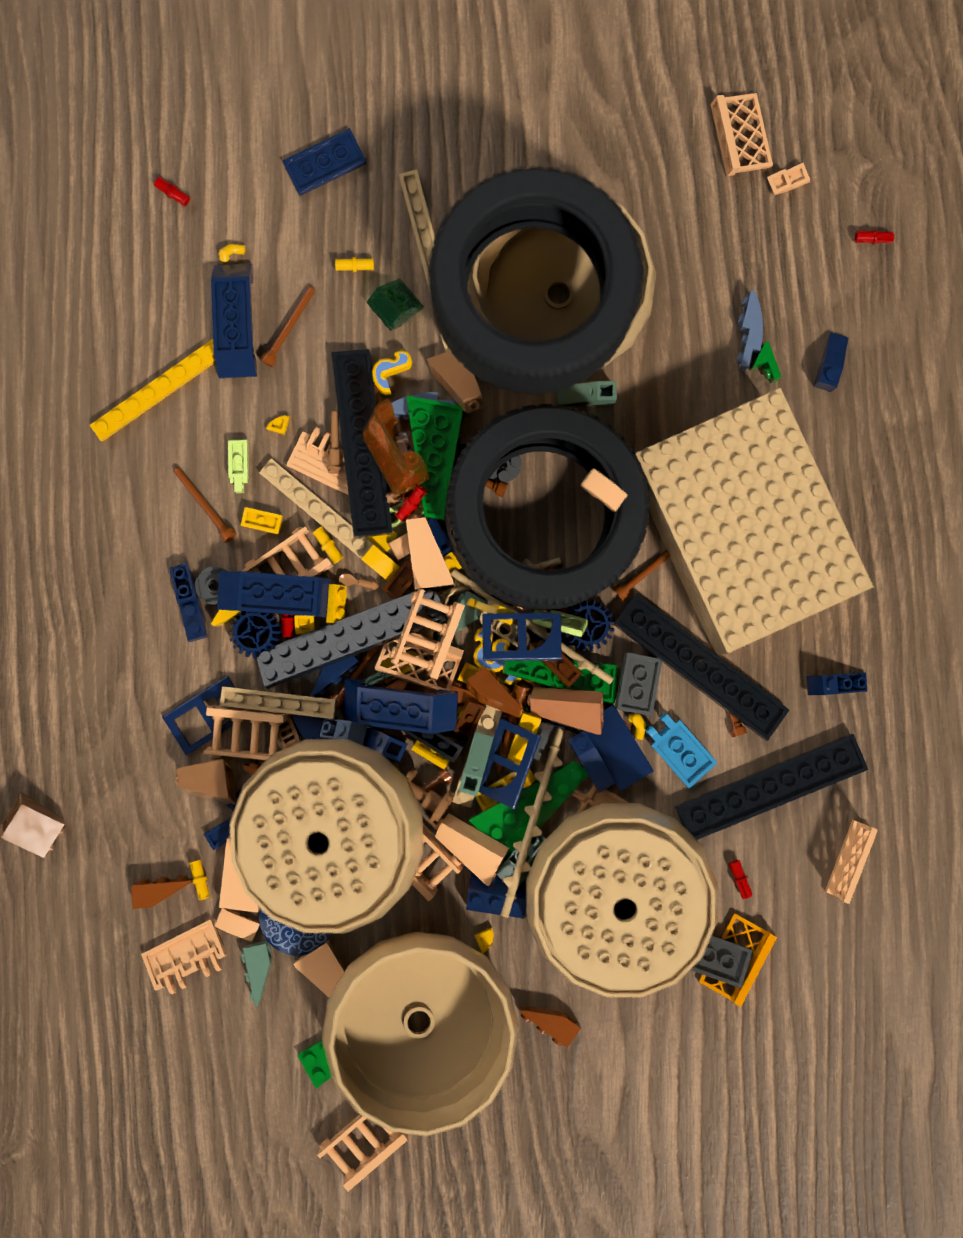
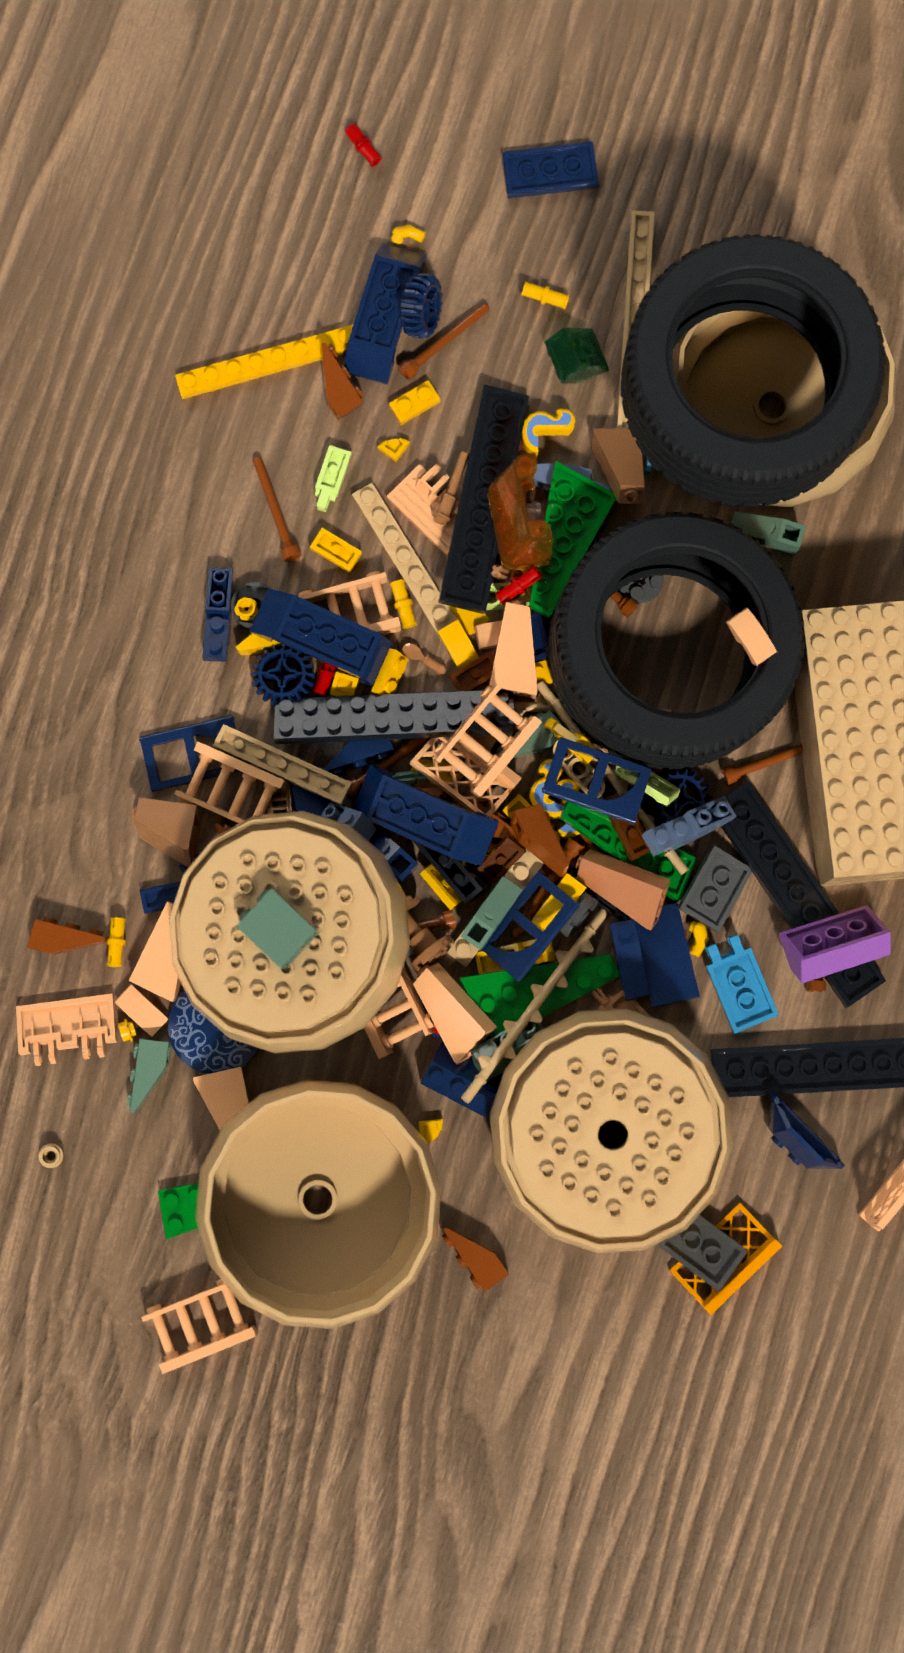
camera: 15 degrees right, 5 degrees down
(203, 1060) = (43, 1155): none -> tan plate
(213, 591) = (246, 602): none -> yellow plate
(221, 396) = (338, 390): none -> dark orange slope
(231, 943) = (127, 1030): none -> yellow plate
(260, 307) = (421, 305): none -> dark blue gear
(282, 383) = (414, 402): none -> yellow plate
(315, 847) = (277, 928): none -> sand green panel
(603, 646) = (689, 826): none -> sand blue slope
(740, 879) = (761, 1163): red axle -> none
(743, 696) = (835, 943): none -> medium lavender slope
(763, 851) = (798, 1138): none -> dark blue wedge

